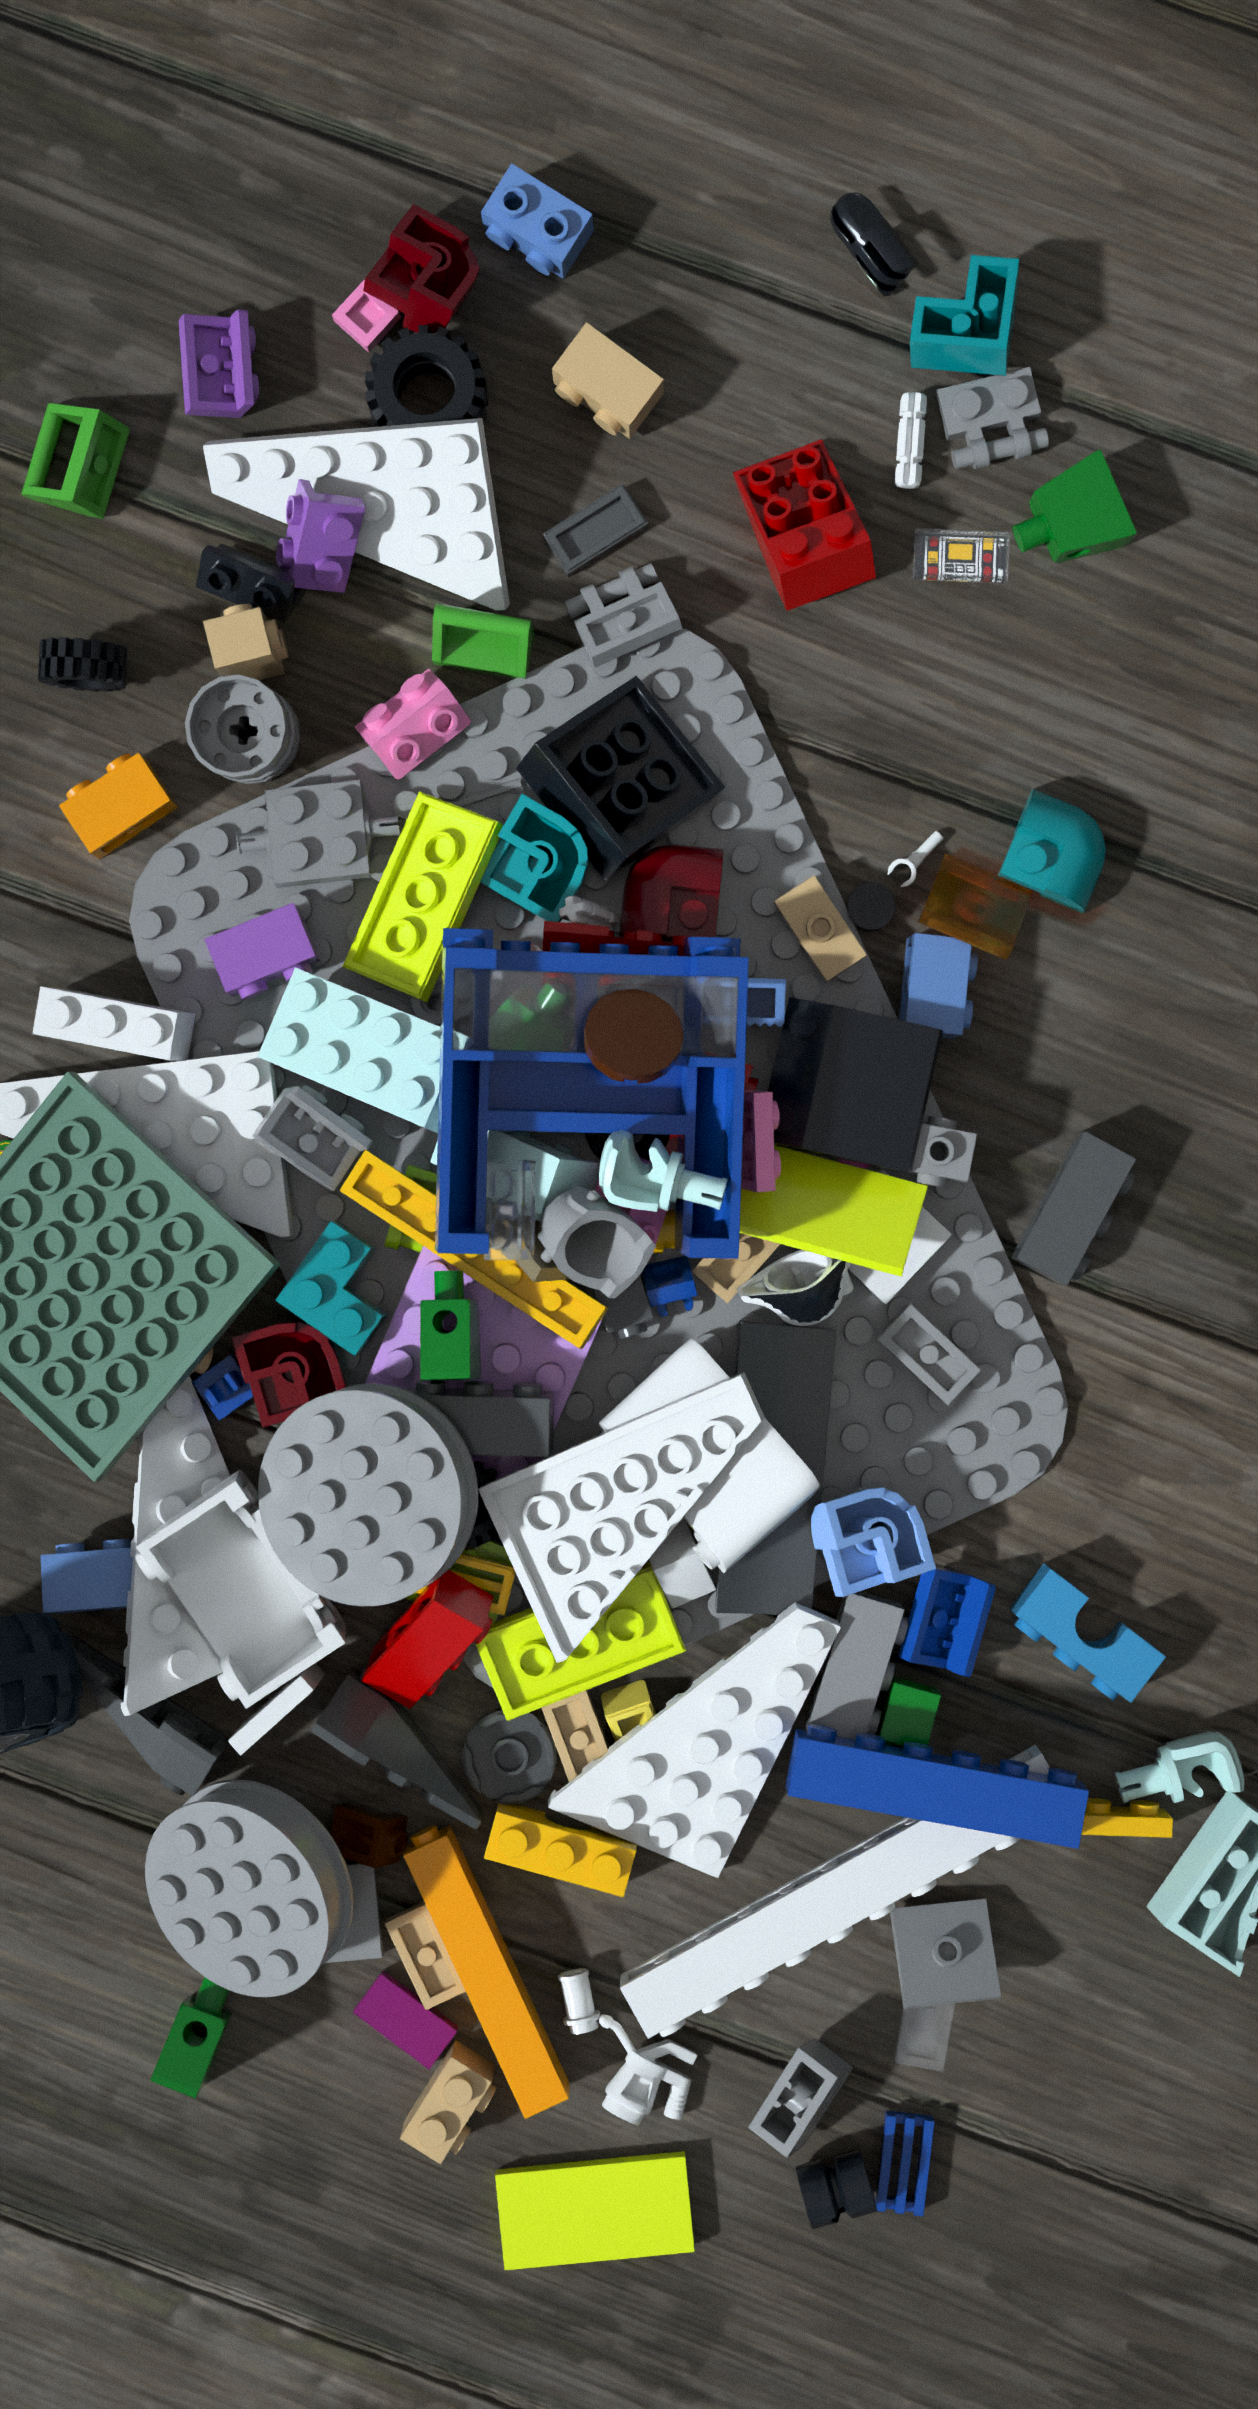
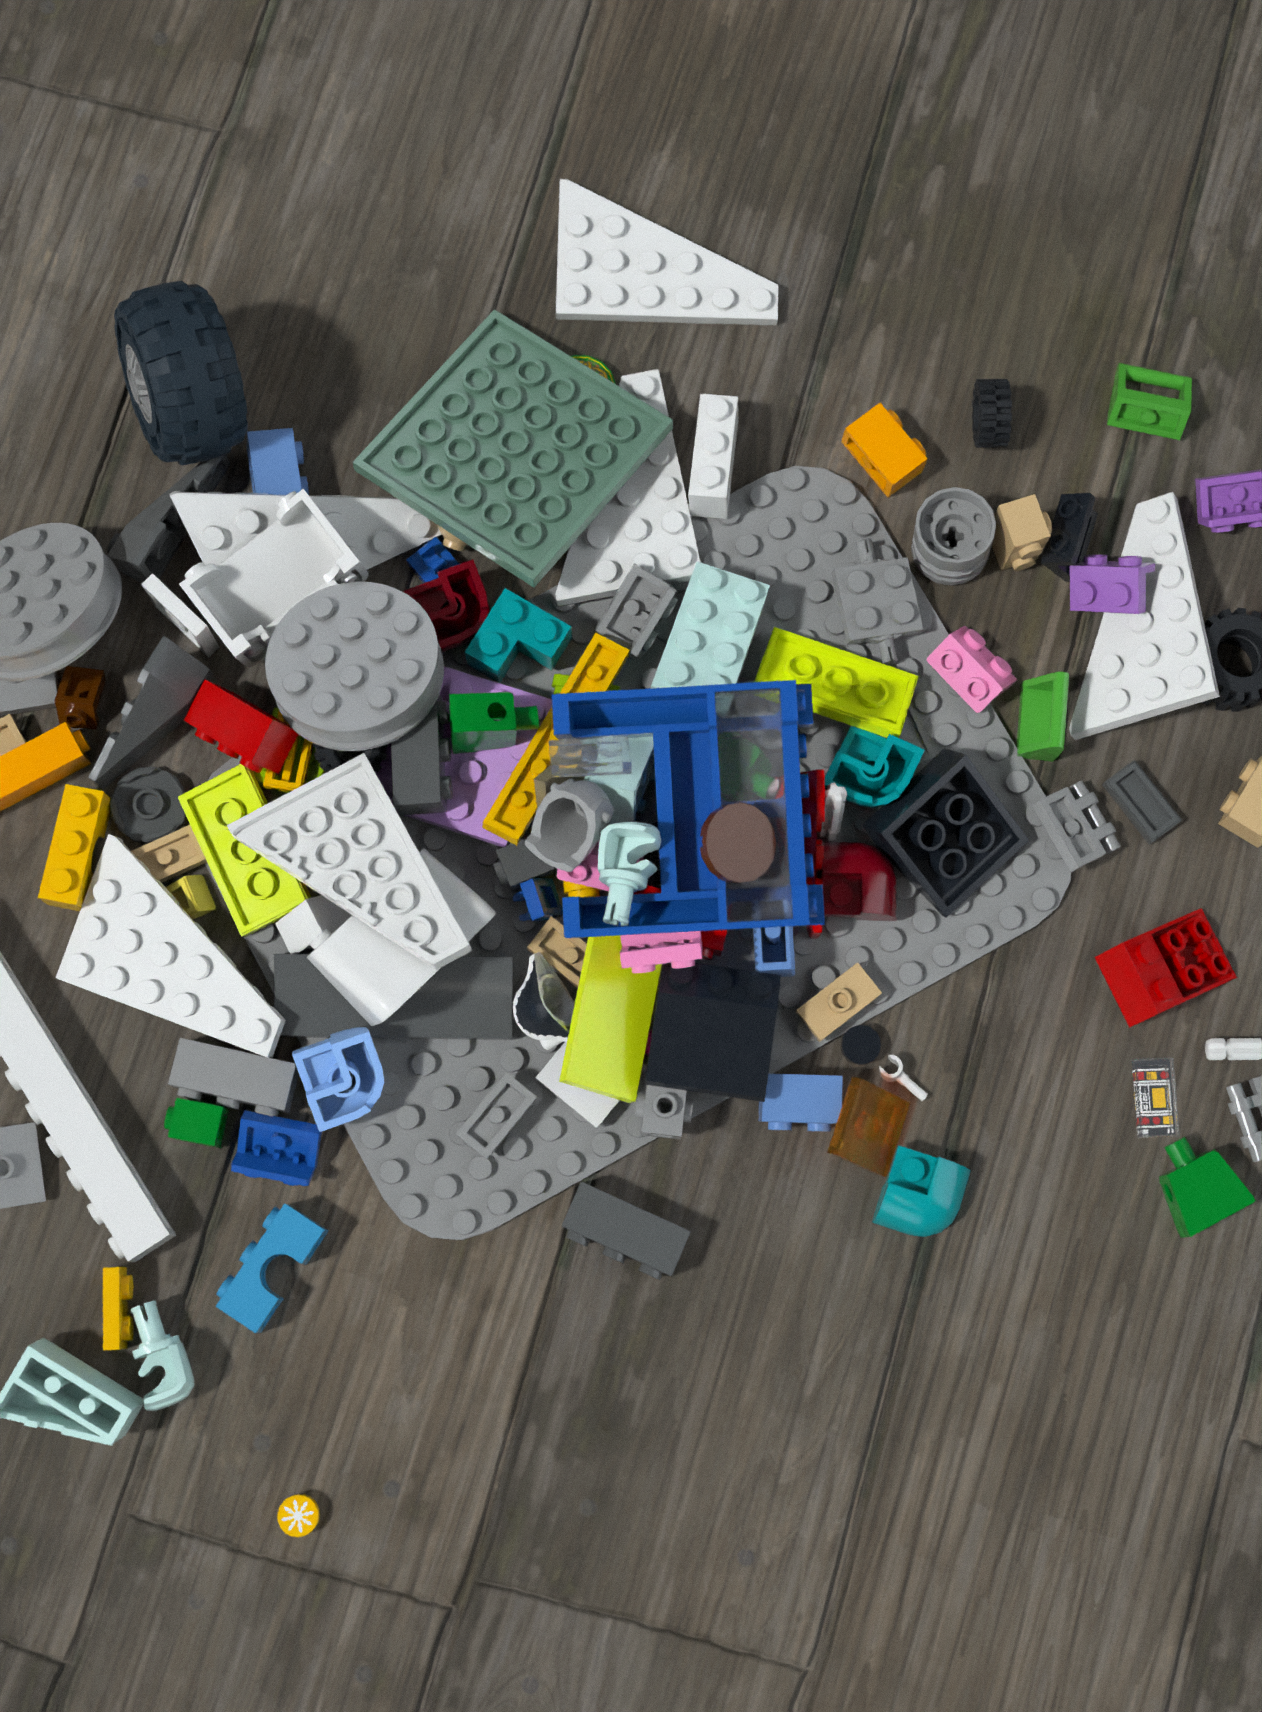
camera: 80 degrees right, 10 degrees down
(262, 951) = (780, 563): medium lavender brick -> none
(937, 1787) = (137, 1144): blue brick -> none

